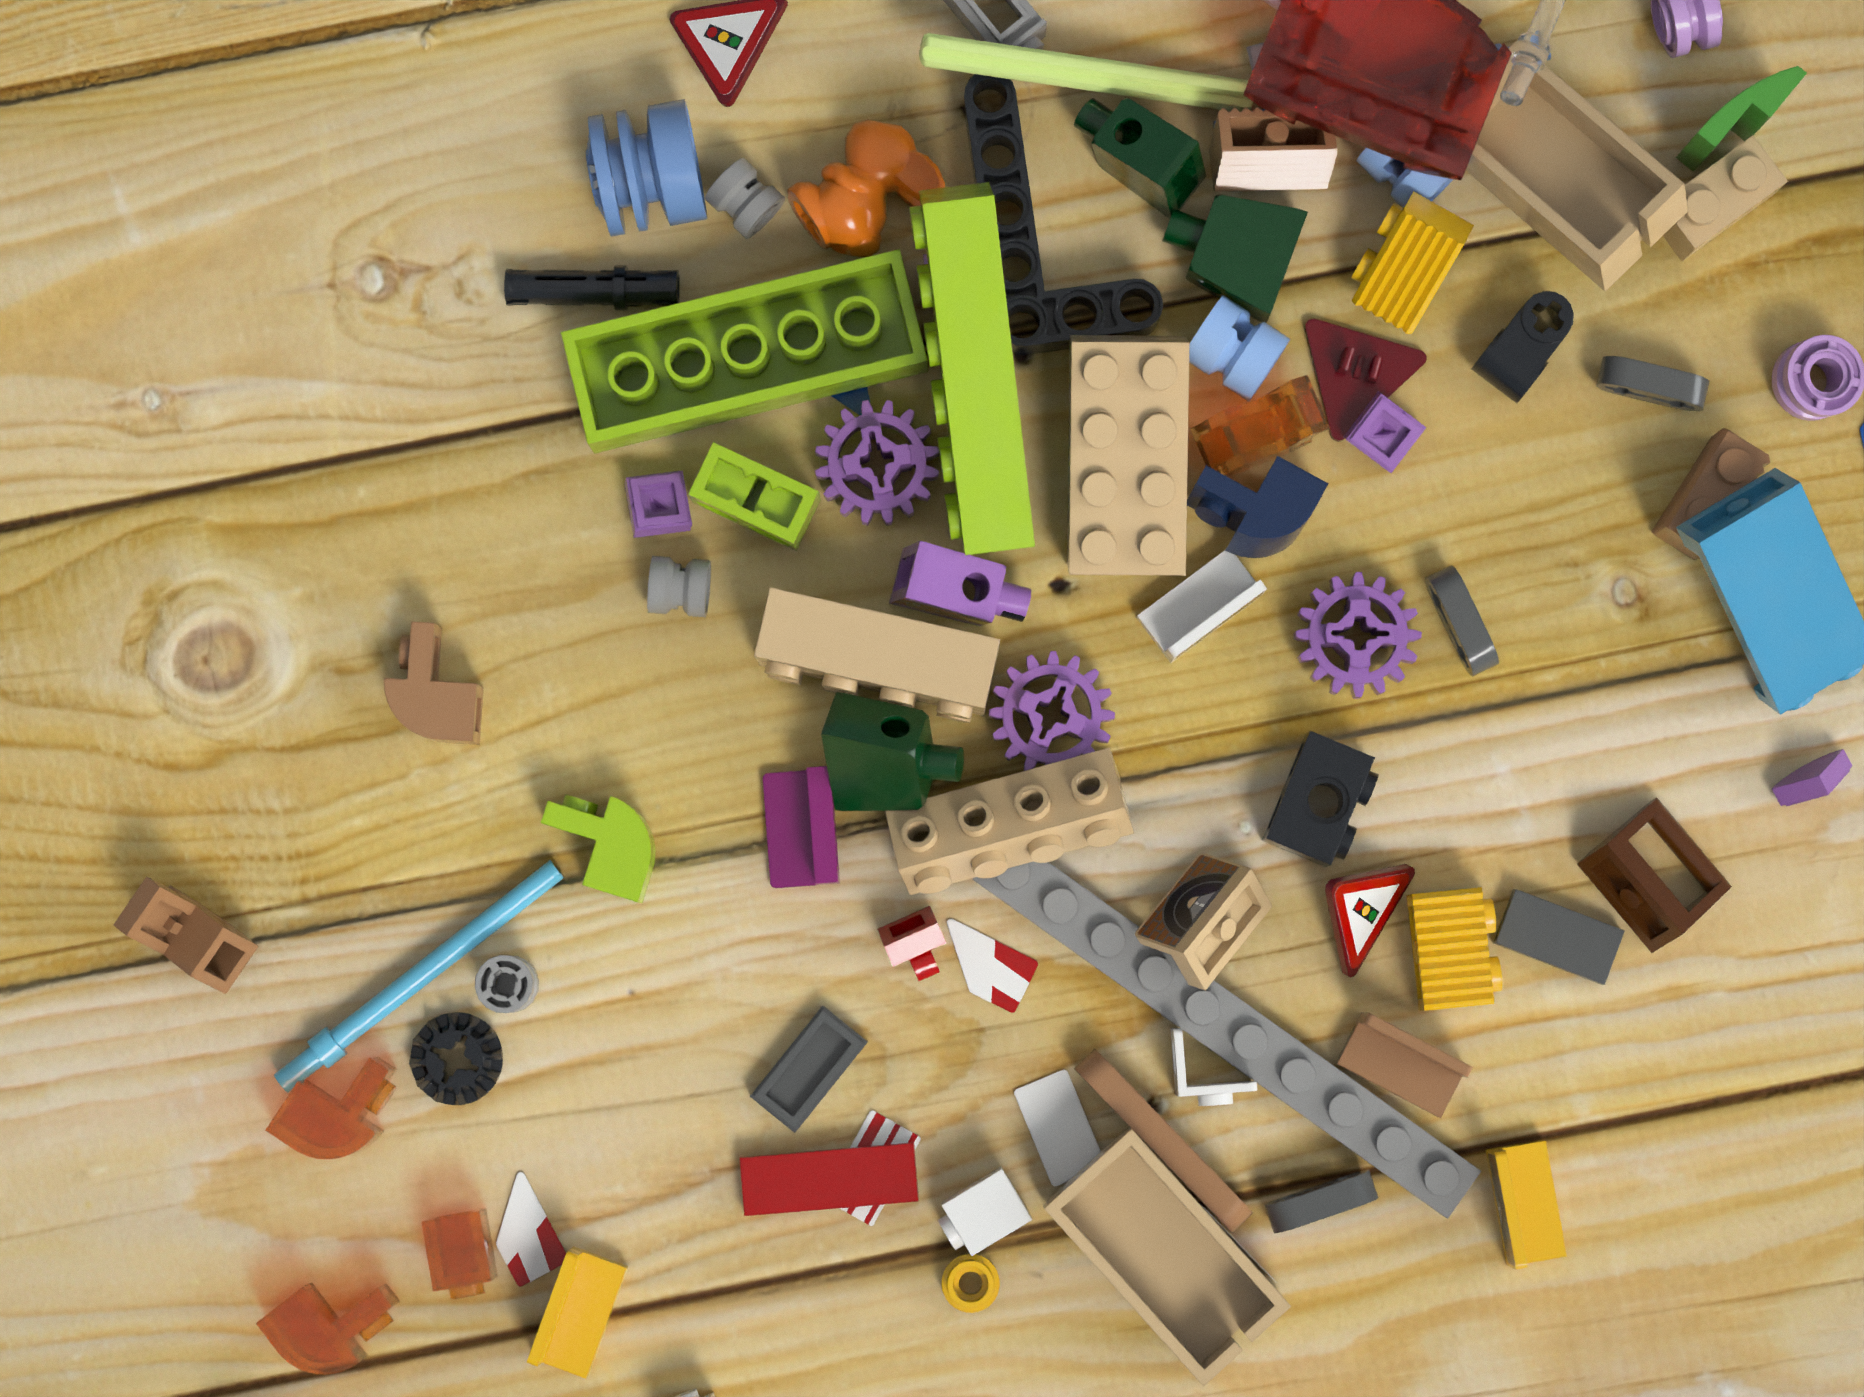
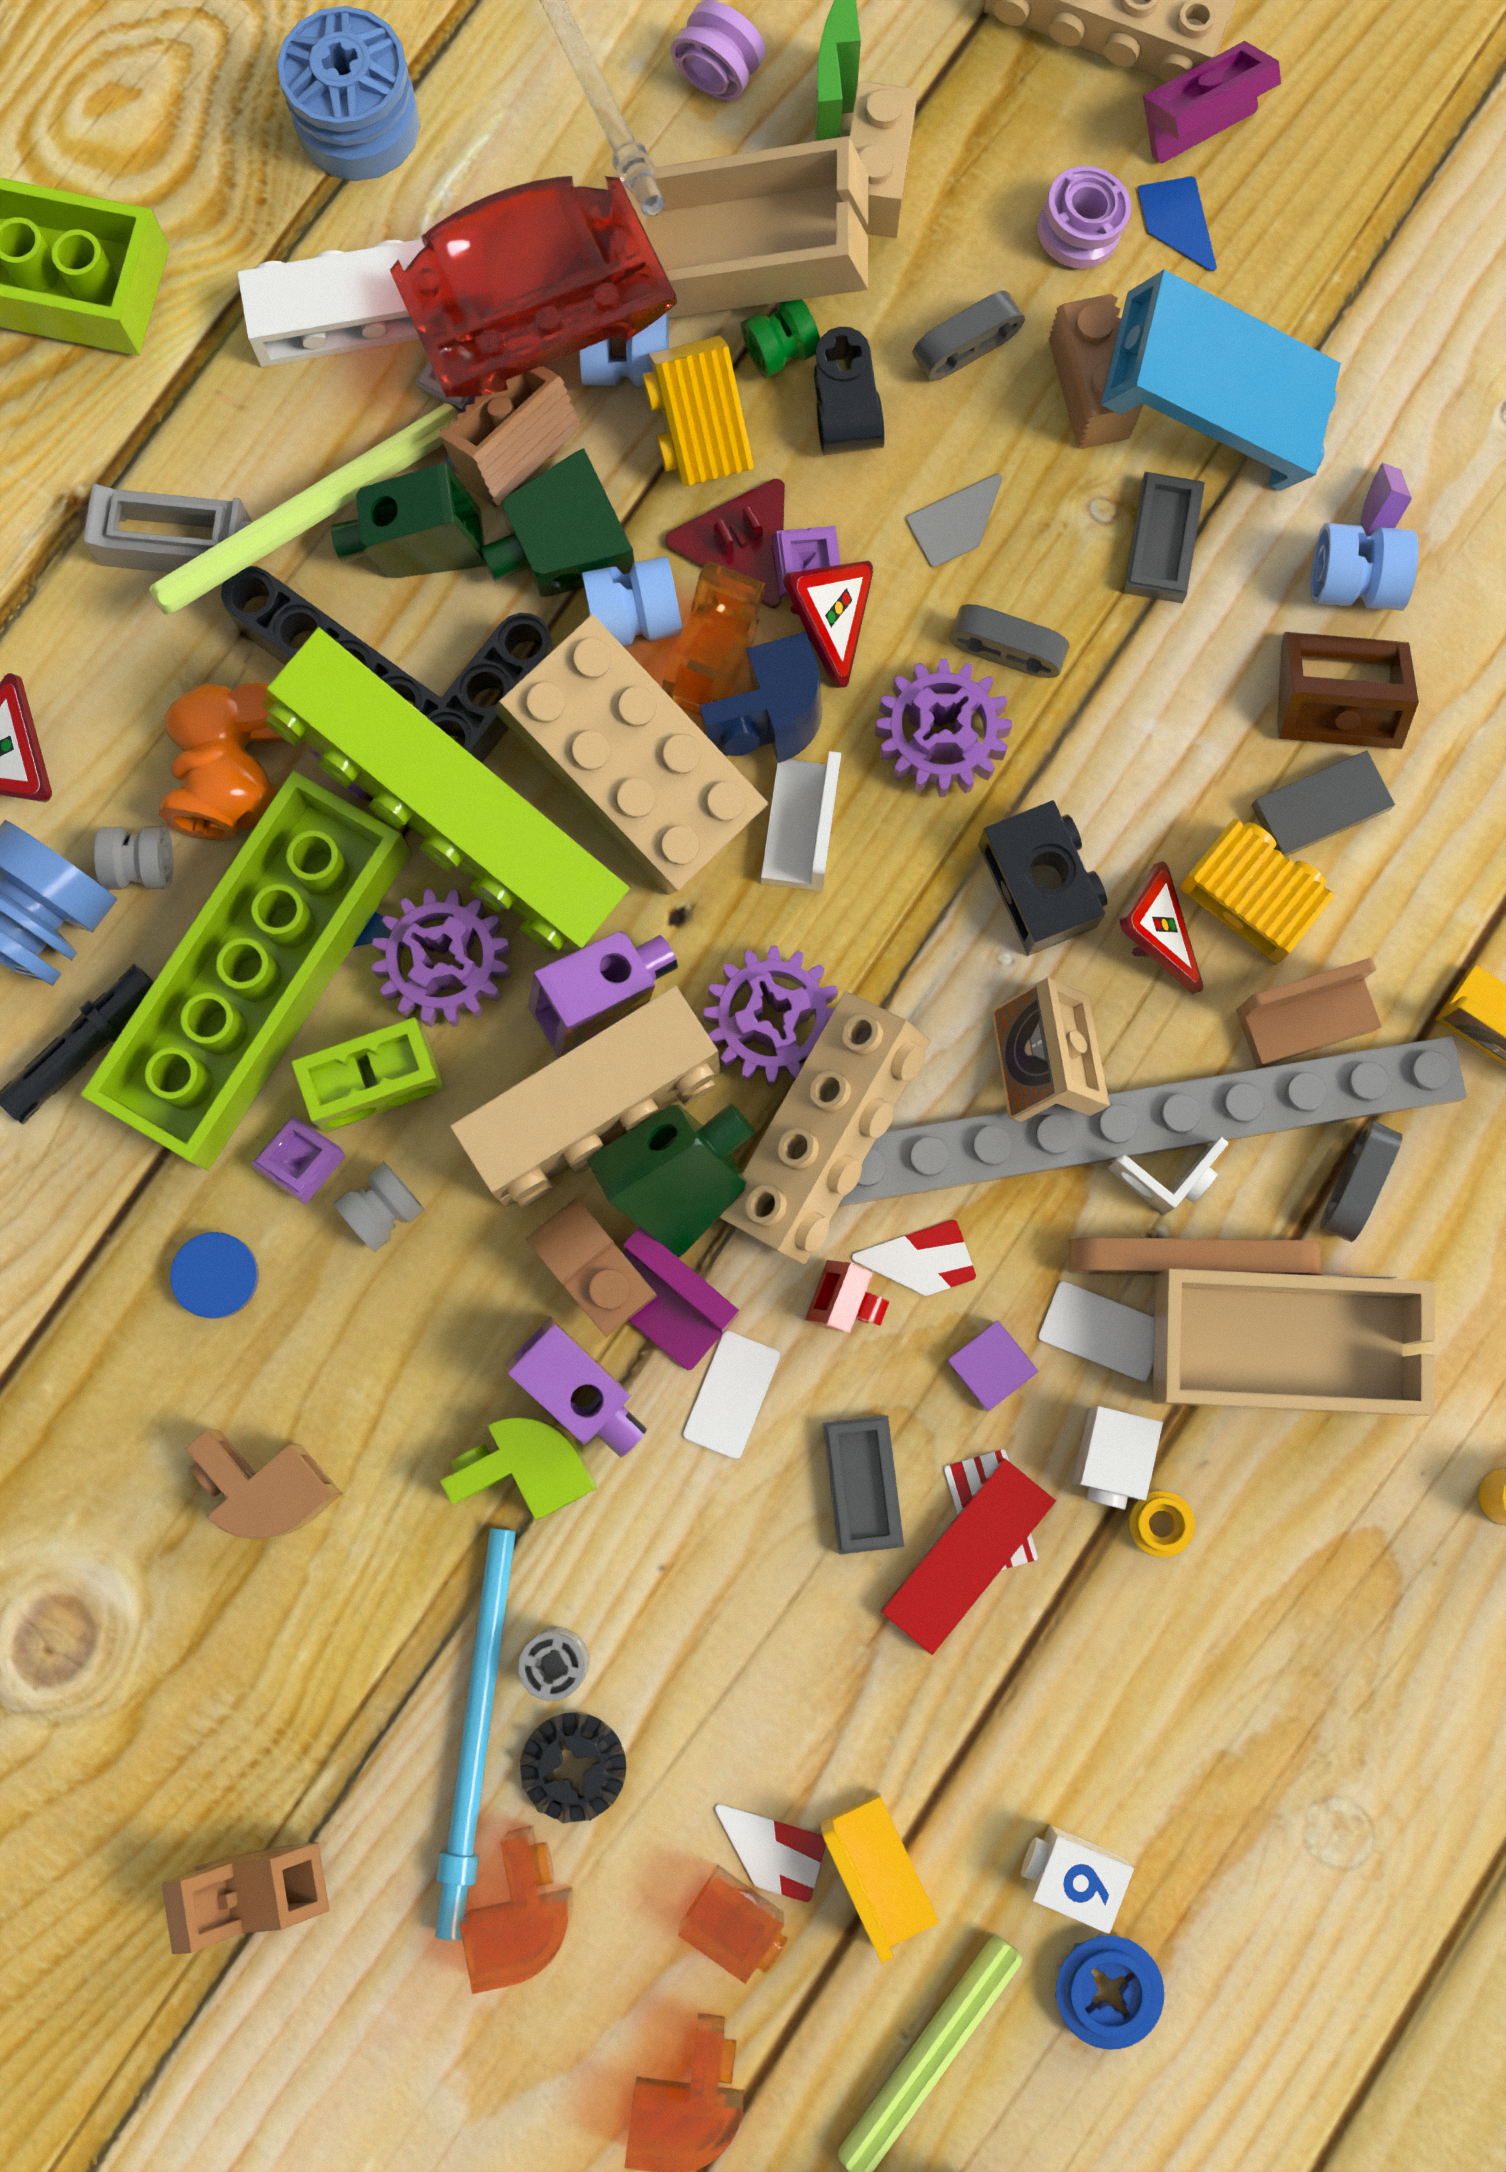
camera: 50 degrees left, 5 degrees down
(533, 526) = (214, 1275): none -> blue piece
(688, 800) = (553, 1367): none -> medium lavender torso
(773, 760) = (591, 1267): none -> medium nougat brick
(783, 929) = (731, 1395): none -> white sticker
(965, 1078) = (992, 1366): none -> medium lavender tile
(1363, 483) = (832, 611): none -> piece
(1512, 254) = (780, 337): none -> green wheel
(1515, 501) = (955, 522): none -> light grey sticker
(1643, 652) = (1163, 537): none -> dark grey tile
(1759, 827) = (1370, 567): none -> light blue wheel

